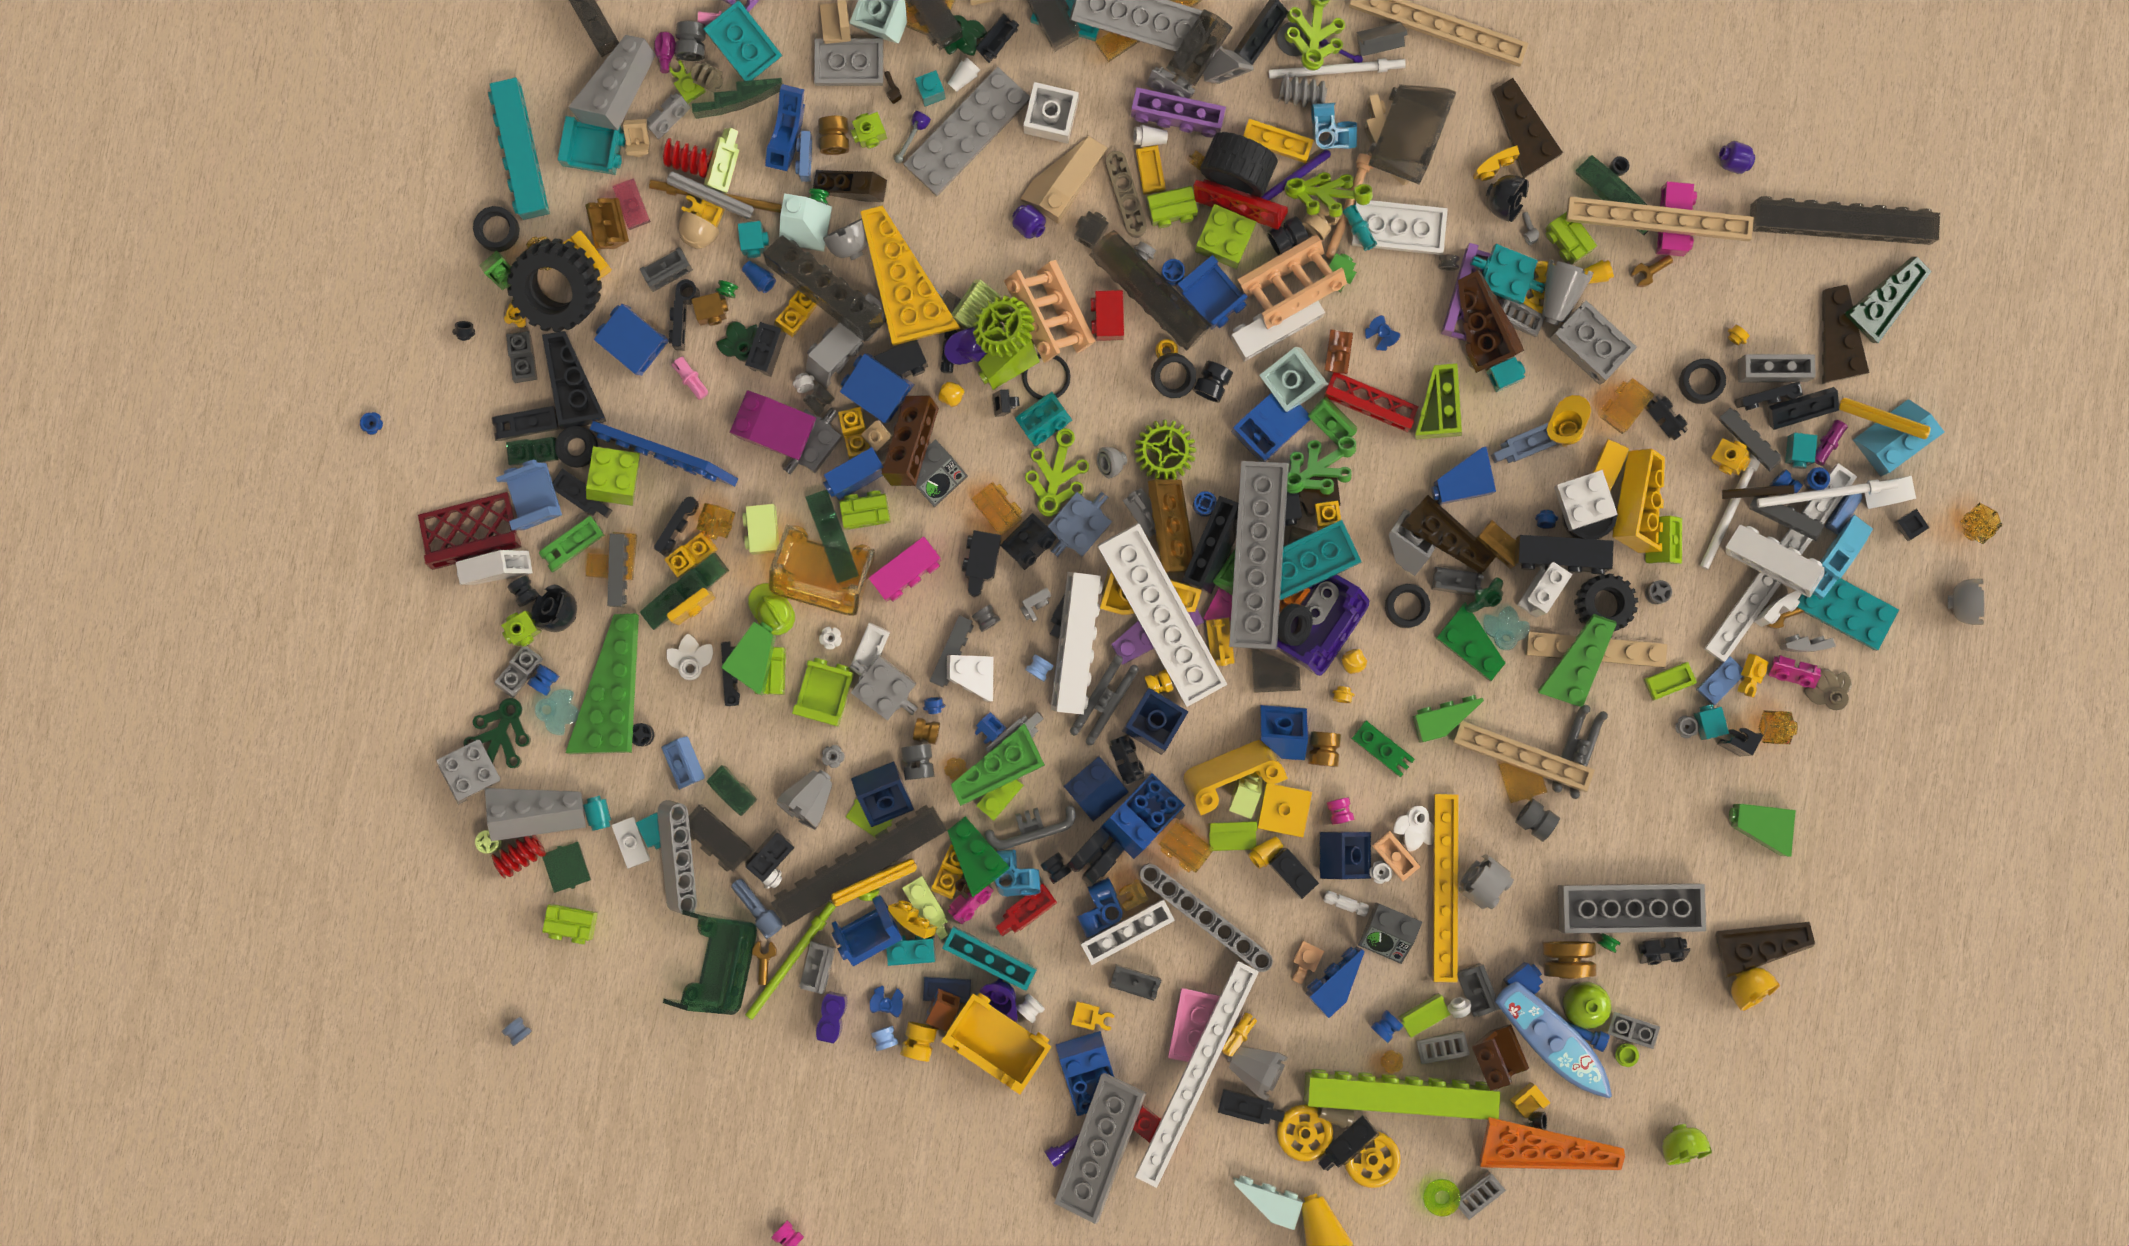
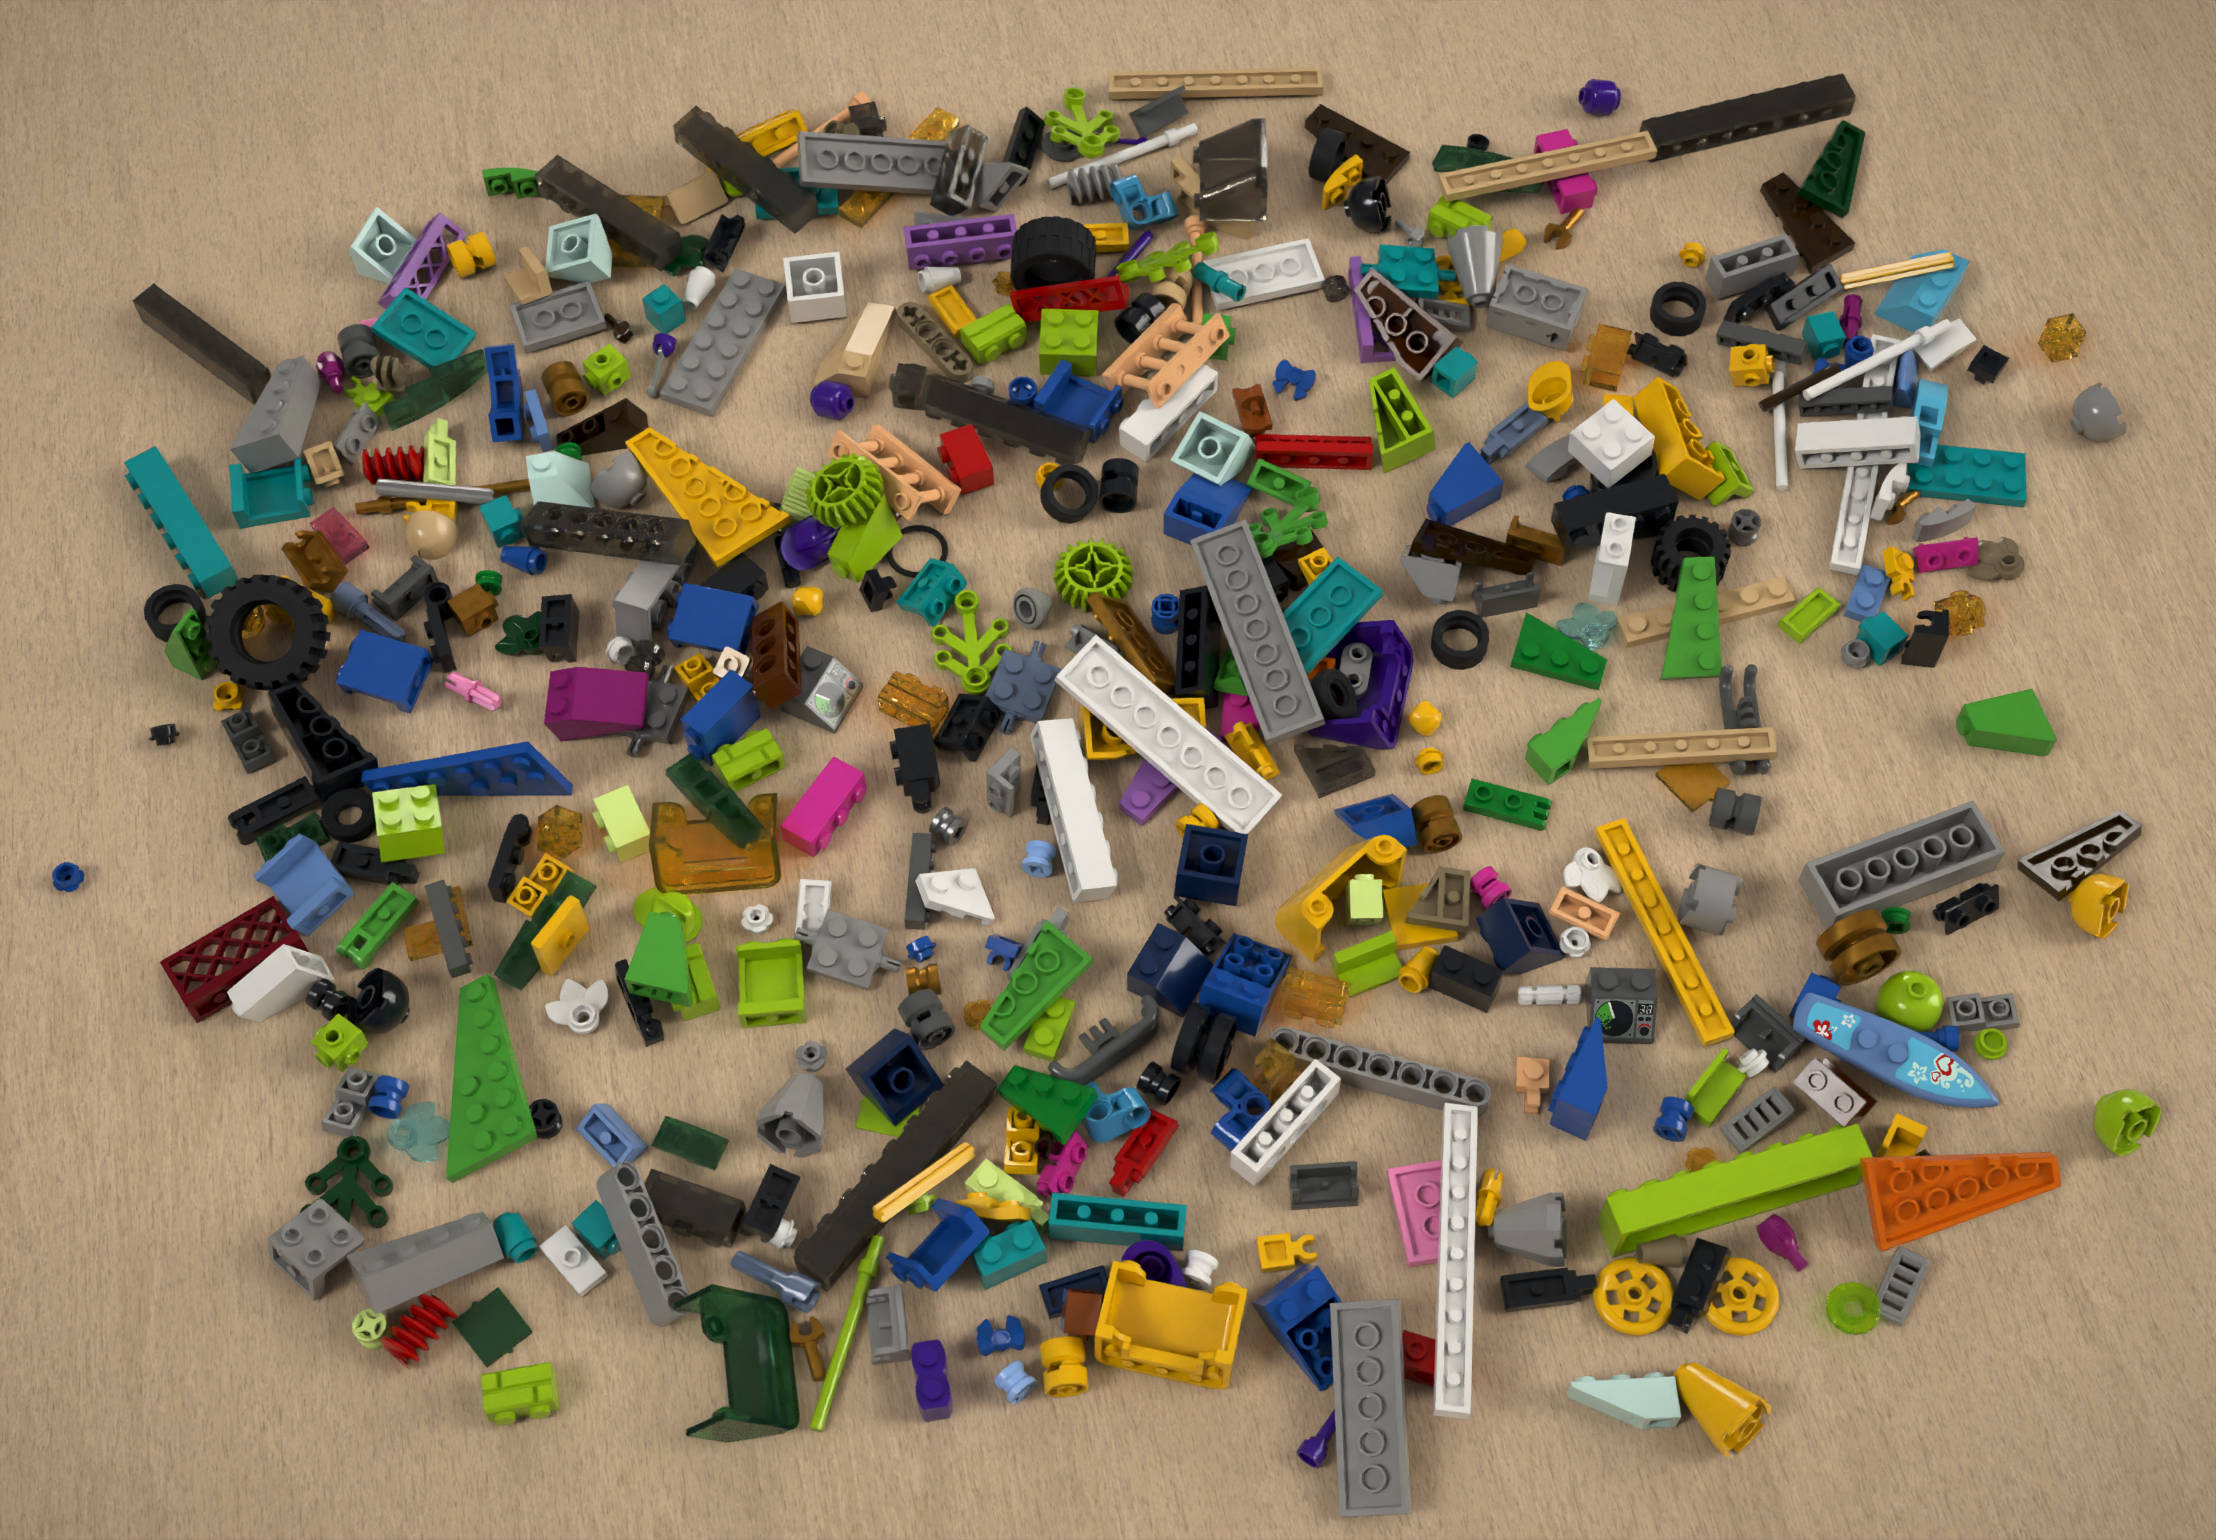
camera: 20 degrees left, 25 degrees down
(625, 270) = (354, 604): none -> sand blue piece
(795, 314) = (586, 578): yellow slope -> none
(1104, 700) = (1136, 864): dark grey piece -> none
(1303, 811) = (1443, 901): none -> dark tan wing
(1417, 1135) = (1781, 1240): none -> magenta piece
(1487, 597) = (1550, 592): dark green plate -> none
(1494, 137) = (1327, 154): none -> black tyre
(1544, 481) = (1552, 461): none -> light grey slope

